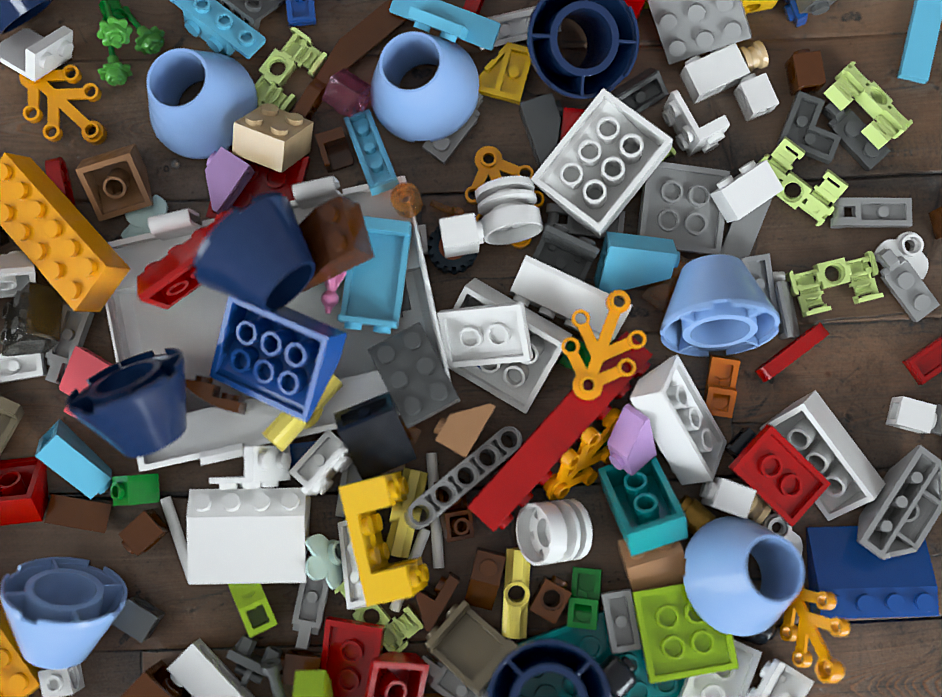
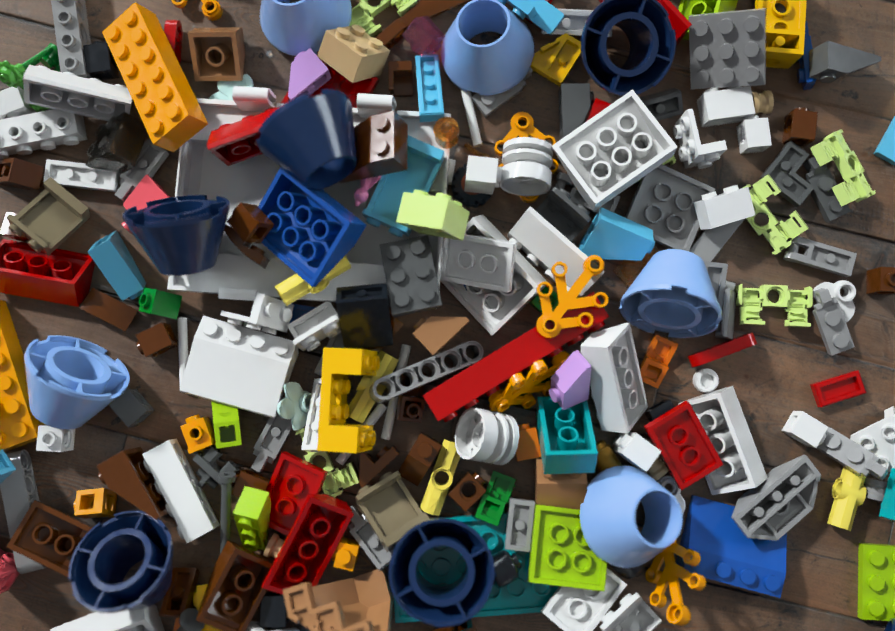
camera: 10 degrees right, 0 degrees up
(213, 369) = (250, 223): none -> reddish brown brick
(233, 625) = (206, 433): none -> light orange brick
(419, 299) = (433, 215): none -> yellowish green brick
(429, 171) = (471, 117): none -> white bar
(603, 524) = (528, 443): none -> orange brick
(783, 392) = (705, 380): none -> white tile

